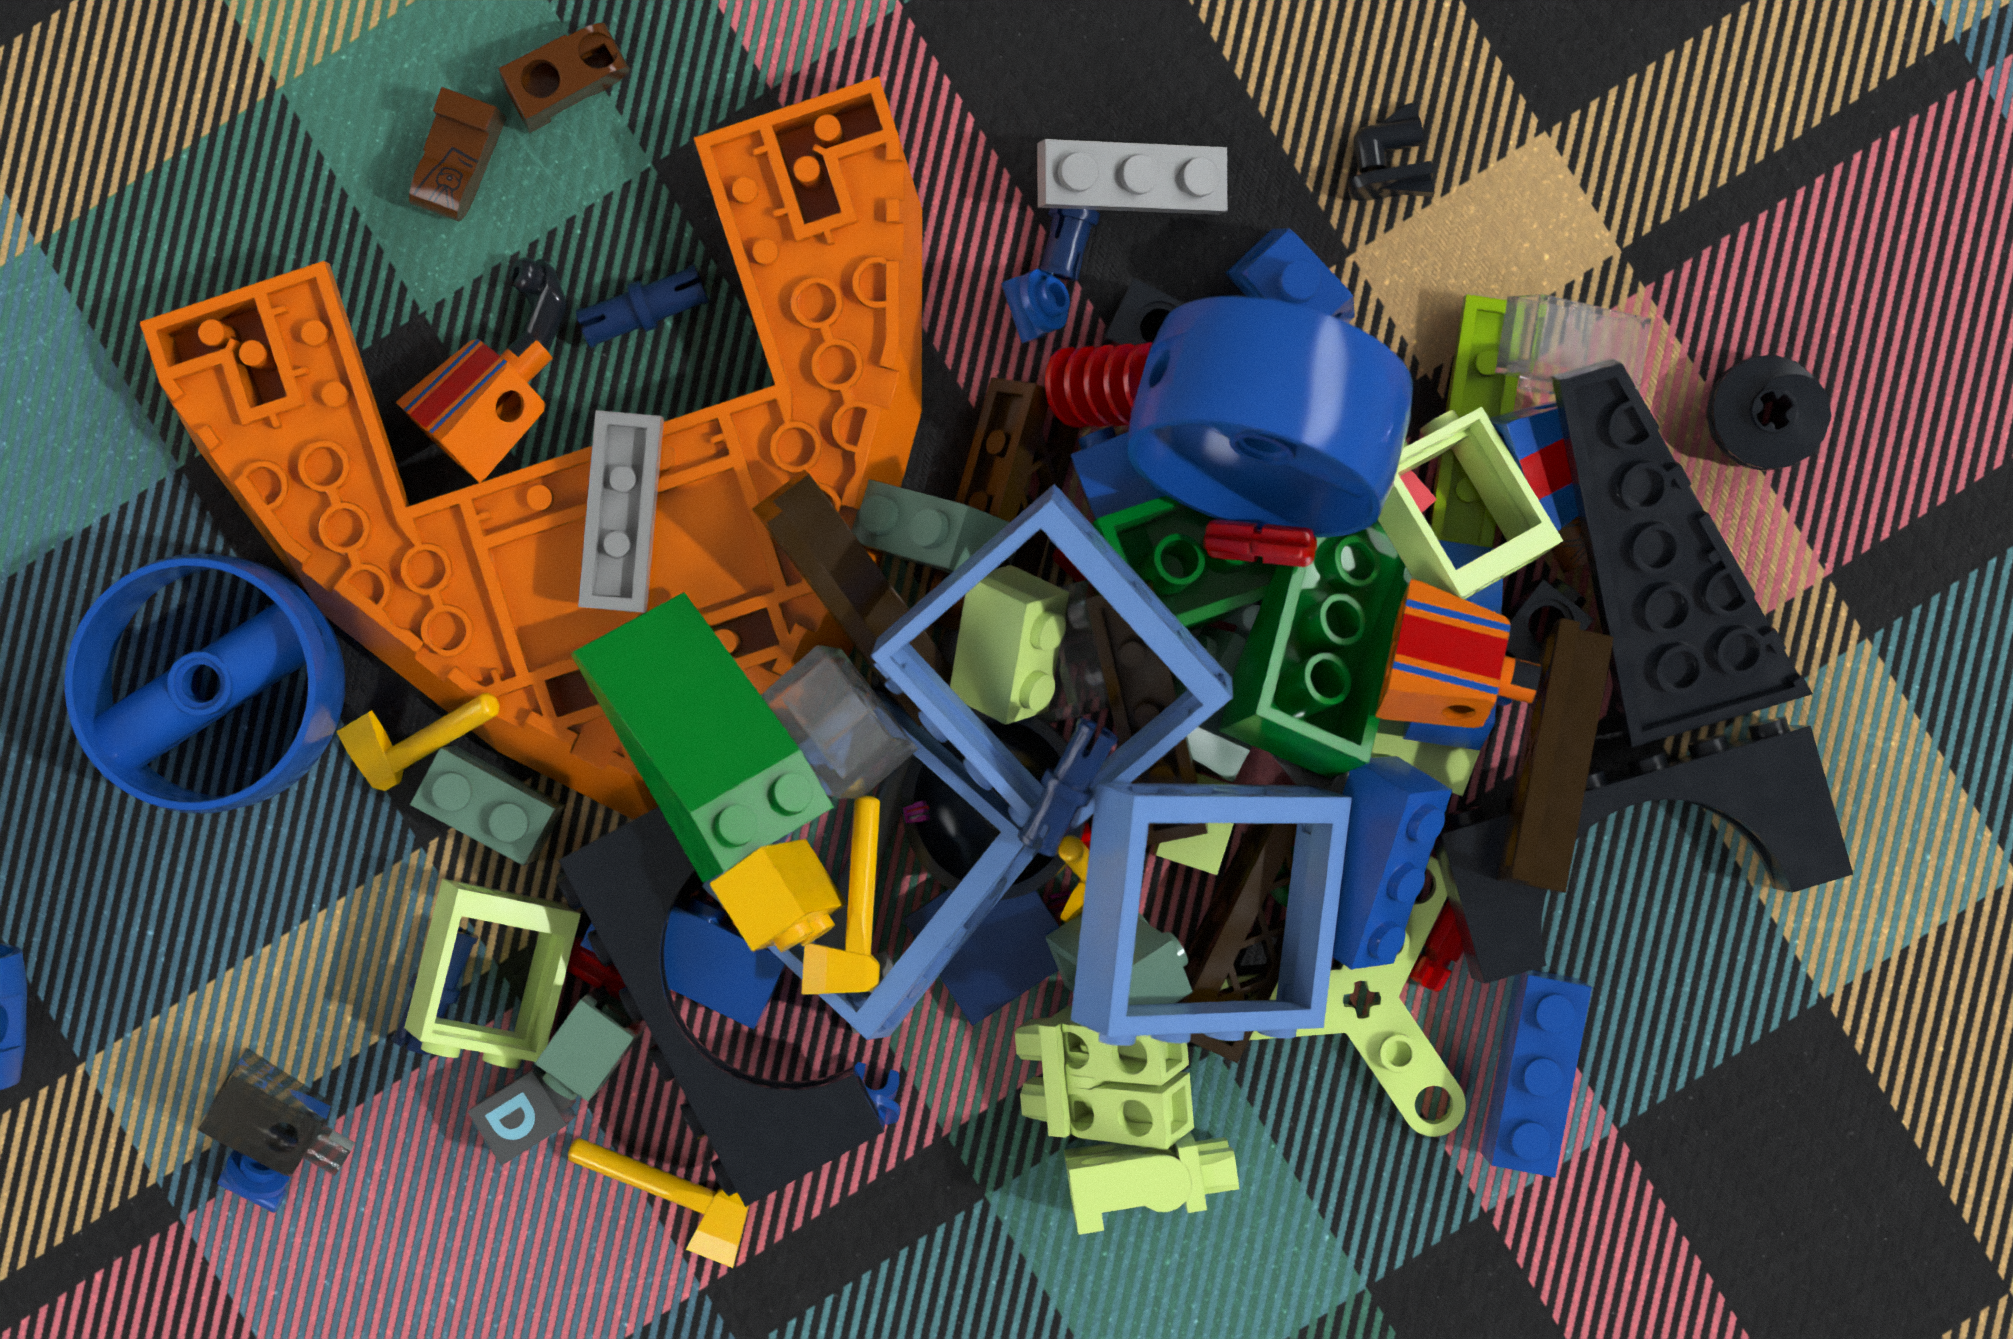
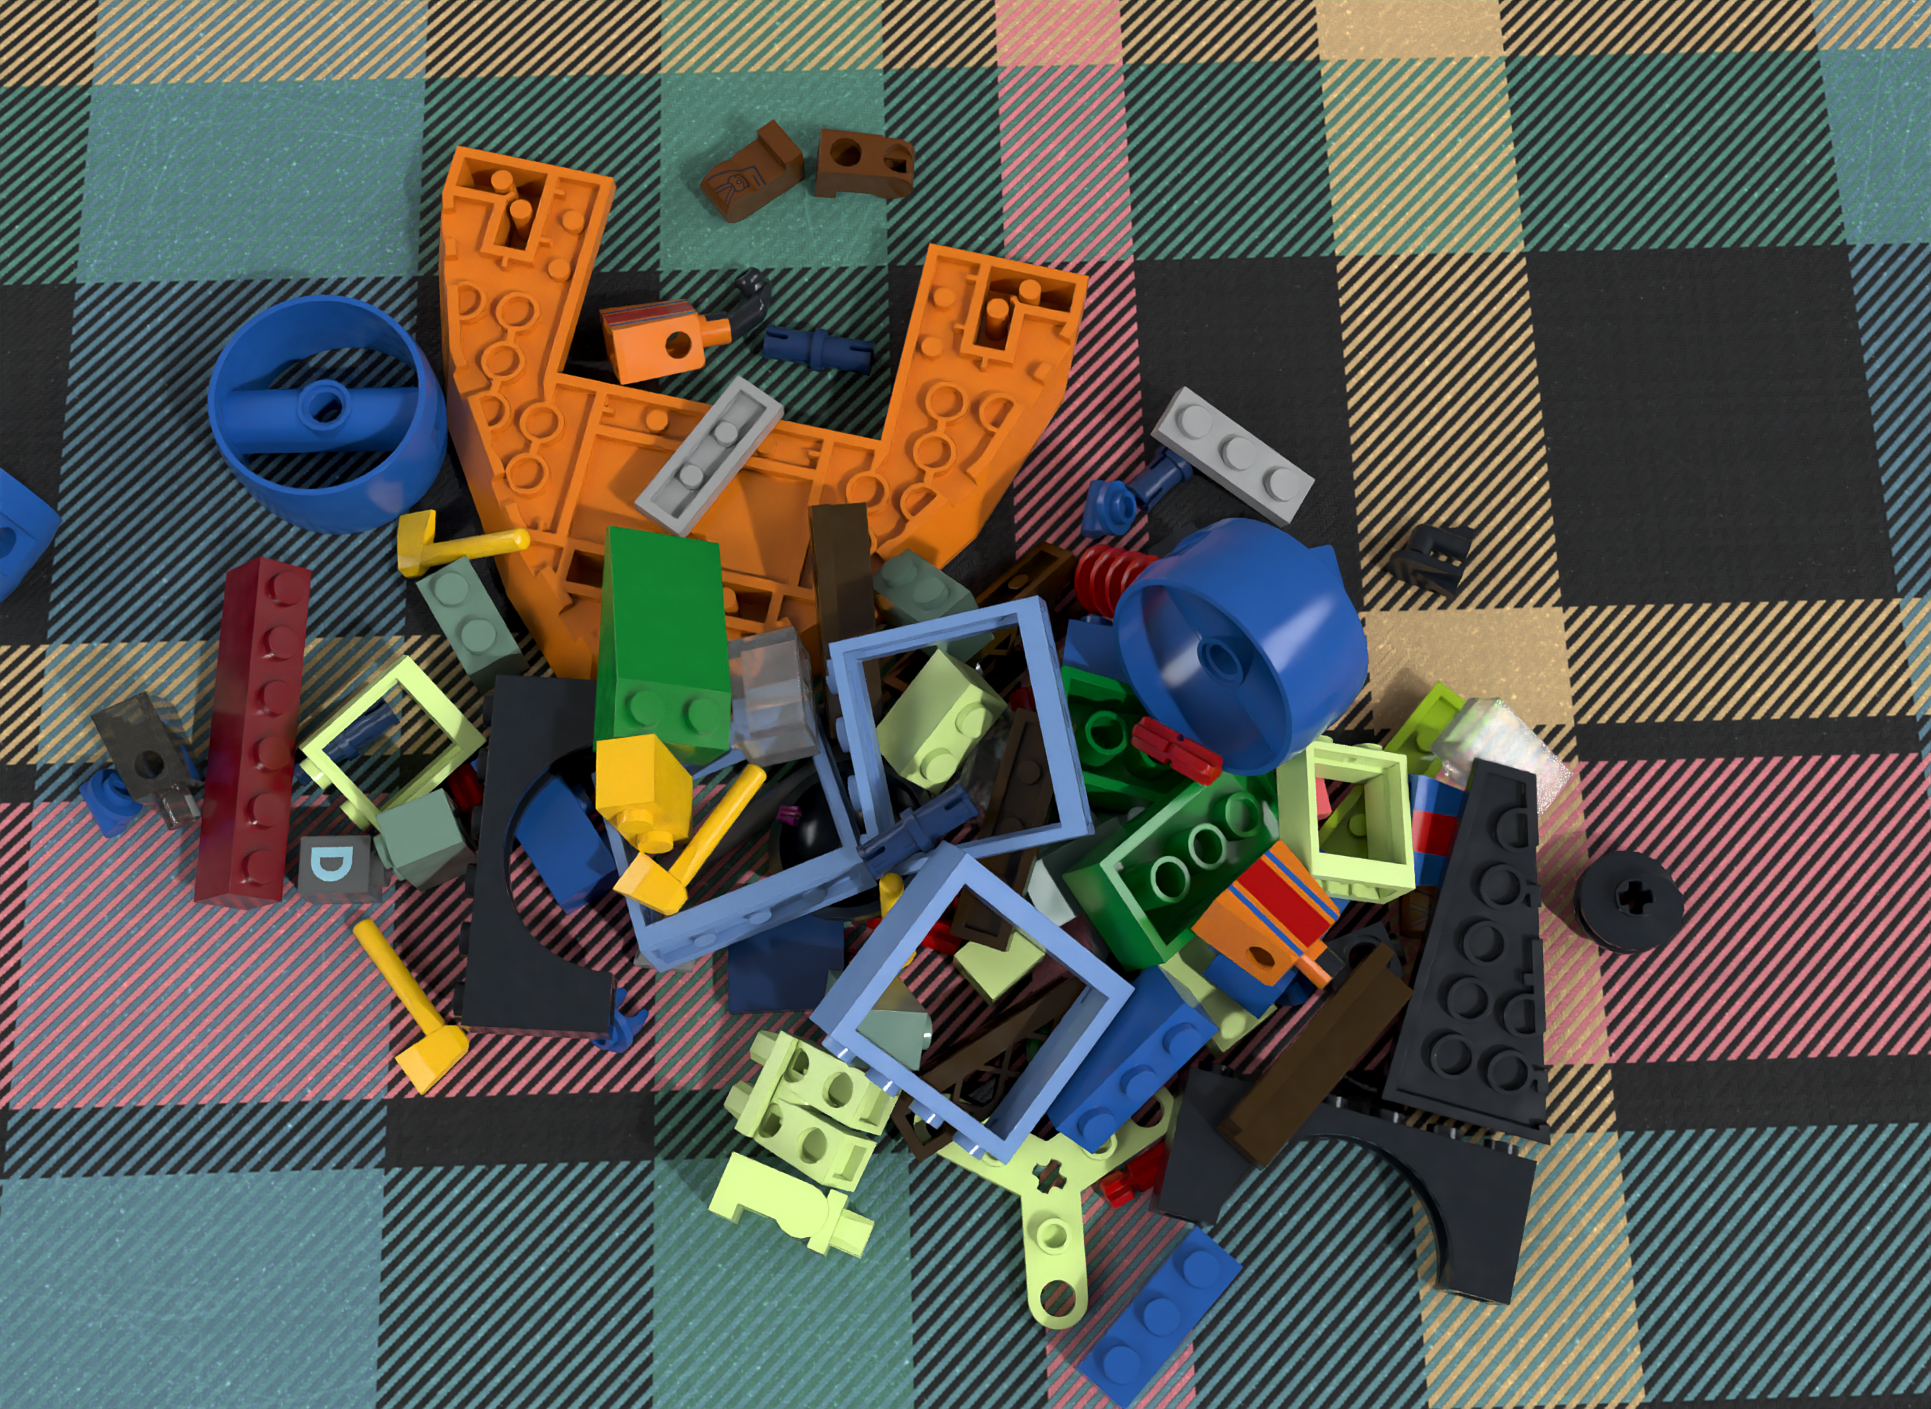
camera: 25 degrees right, 15 degrees down
(351, 1038) = (253, 736): none -> dark red brick

